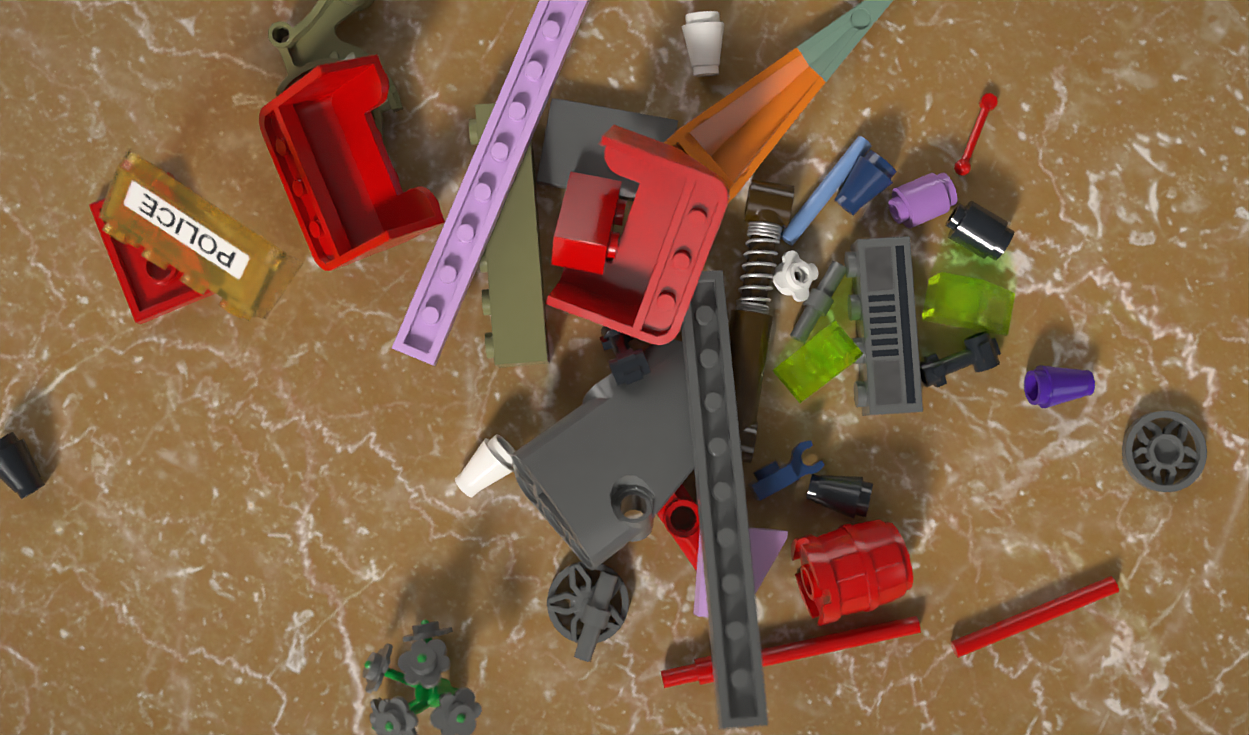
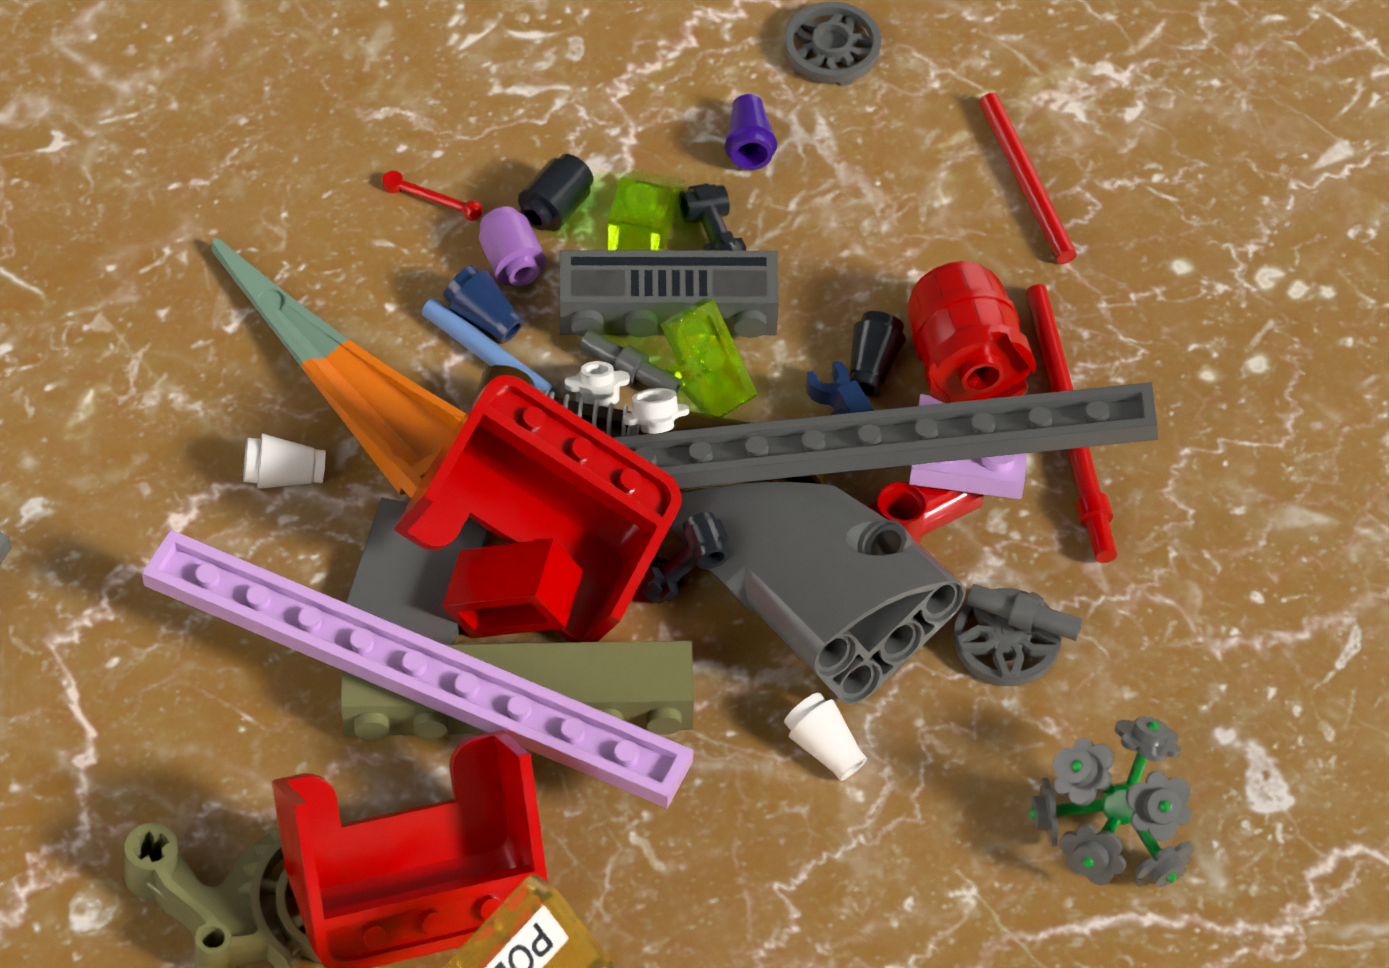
camera: 90 degrees left, 30 degrees down
(746, 320) = (655, 410): none -> white plate

